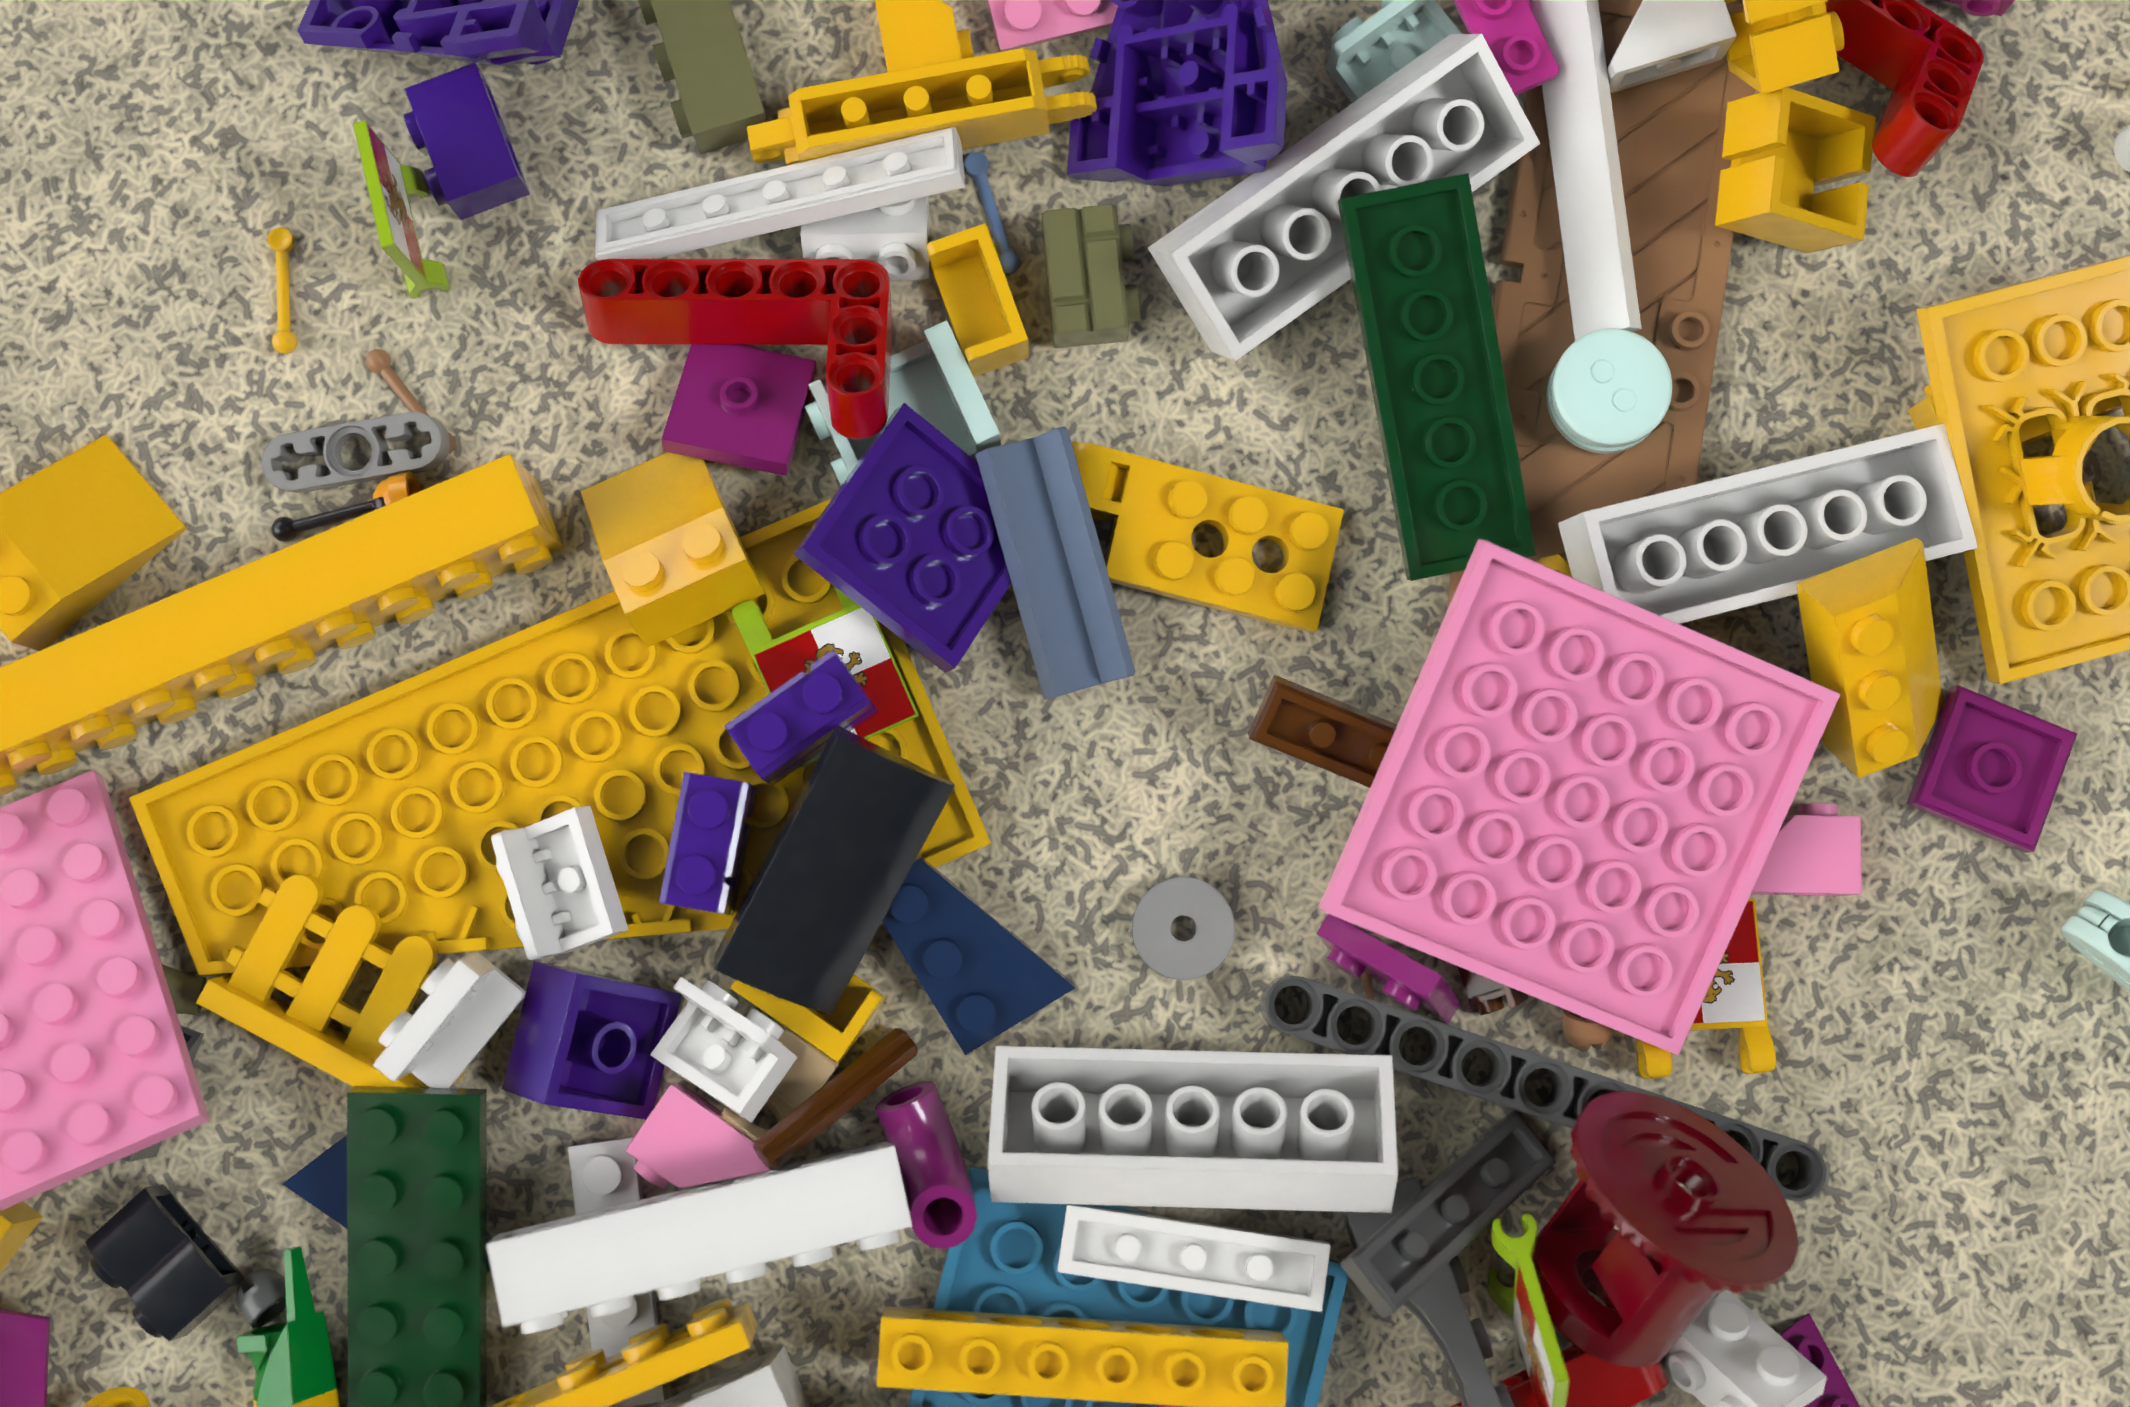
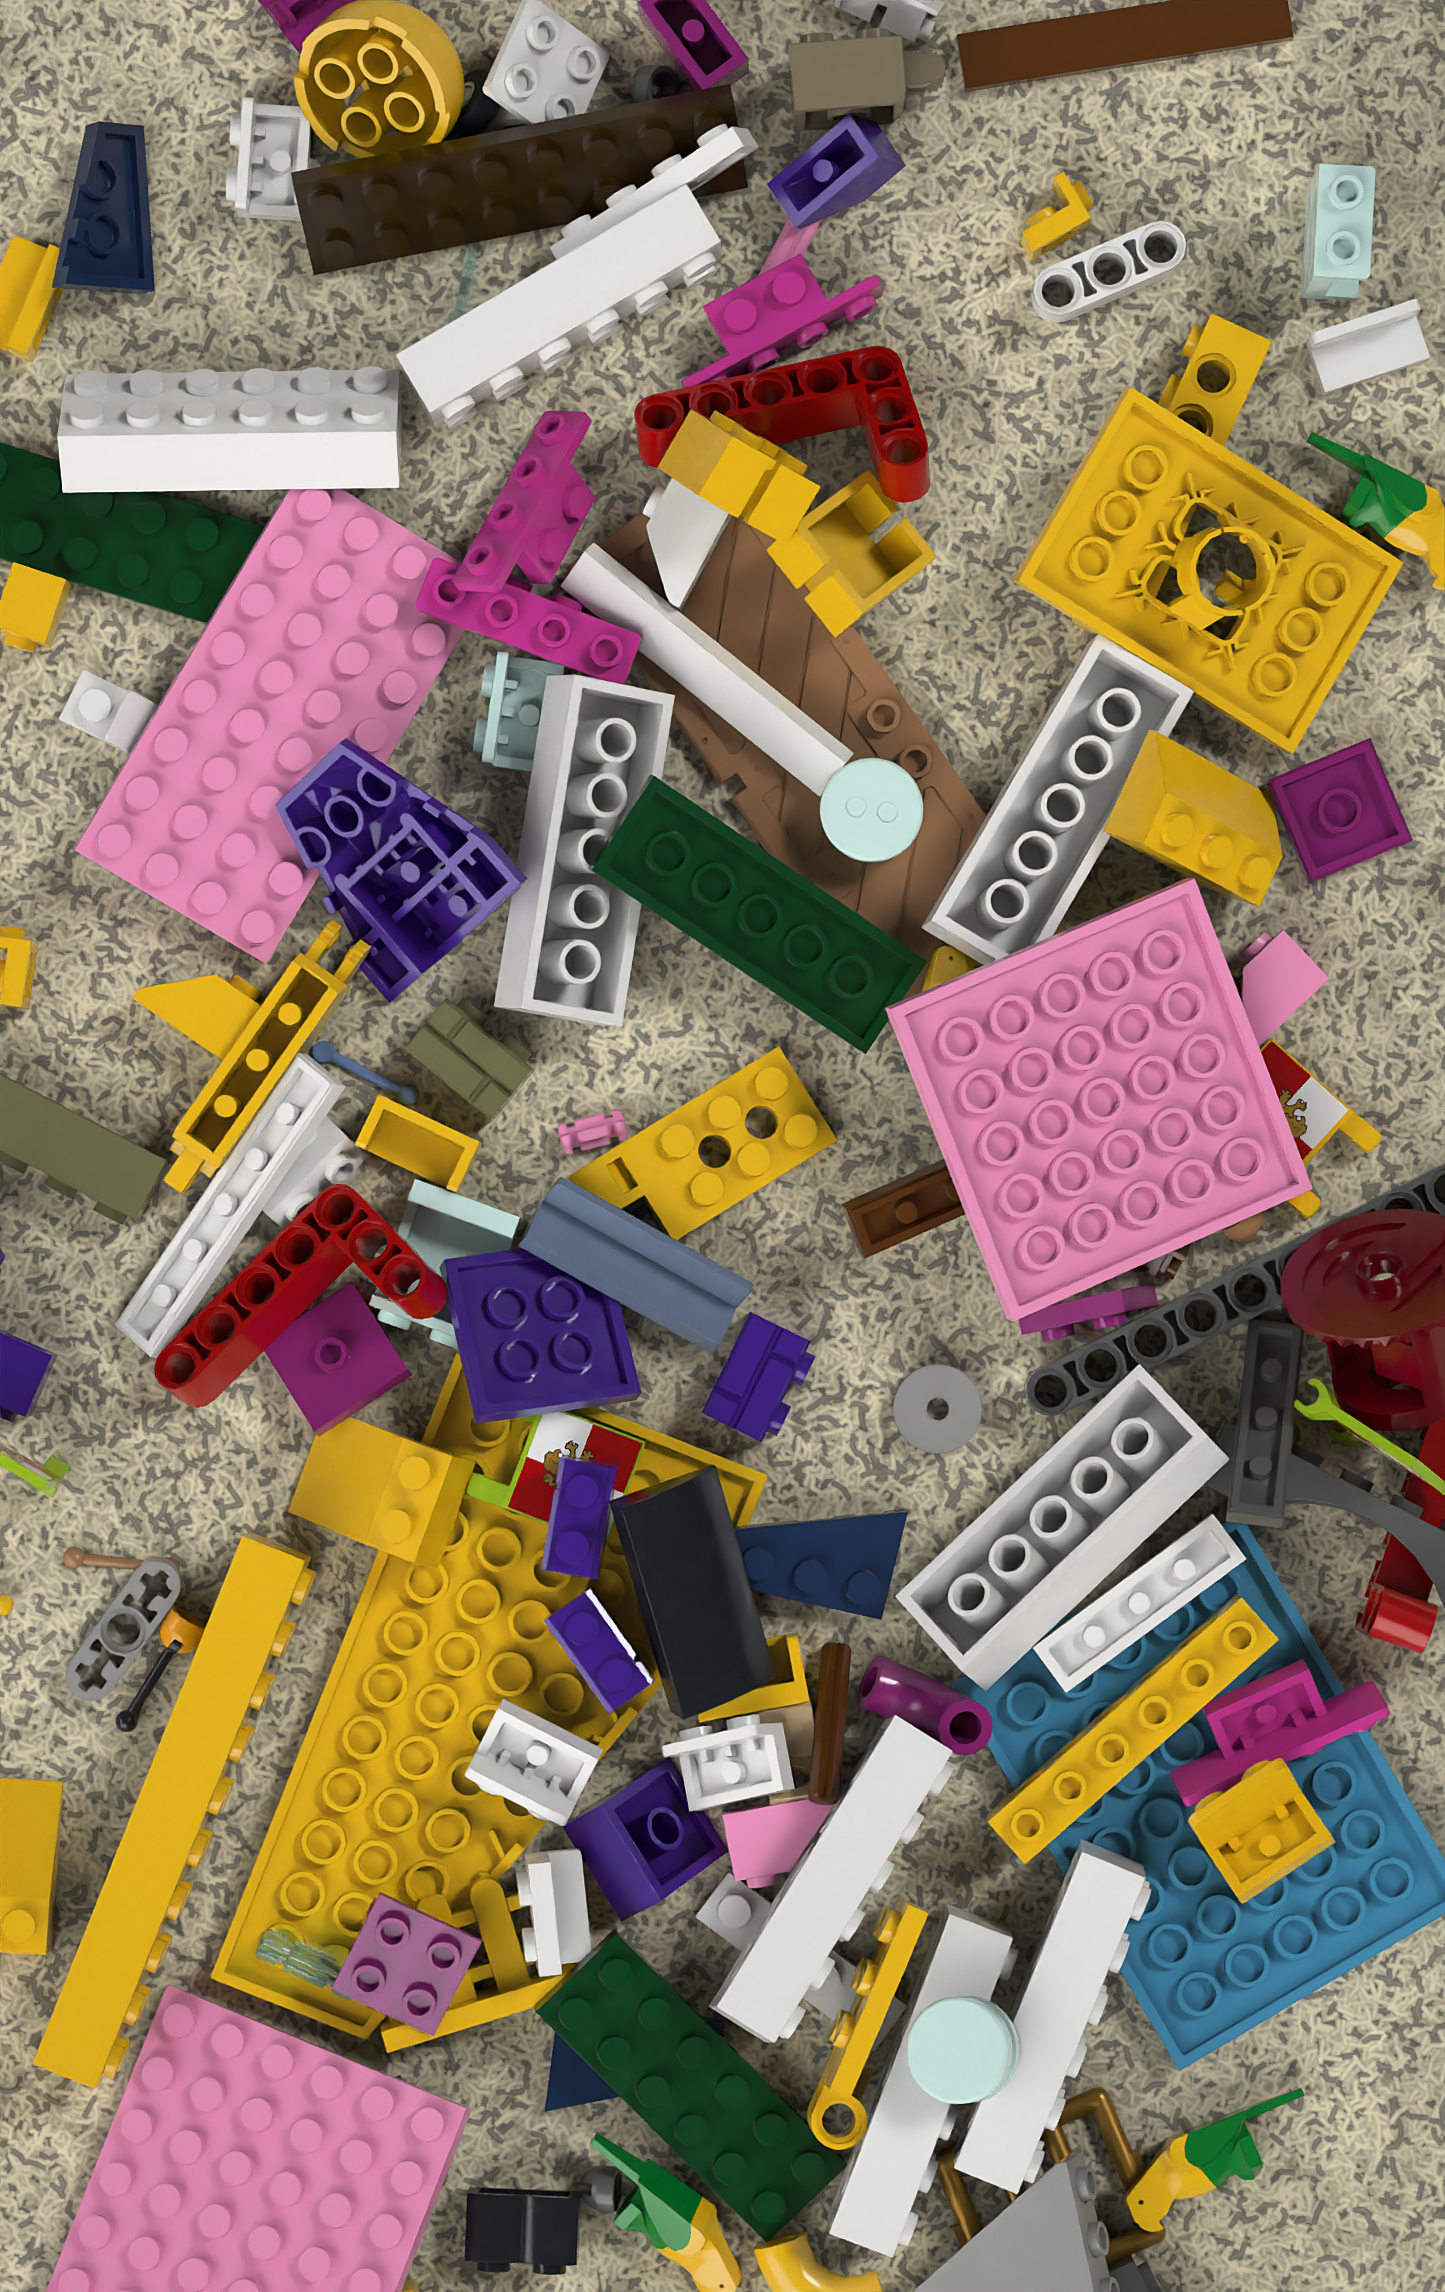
camera: 40 degrees left, 5 degrees up
(214, 866) = (299, 1960): none -> clear light blue axle
(283, 943) = (406, 1963): none -> magenta hinge
(1063, 755) = (757, 1378): none -> dark purple brick
(1125, 430) = (592, 1131): none -> bright pink piece

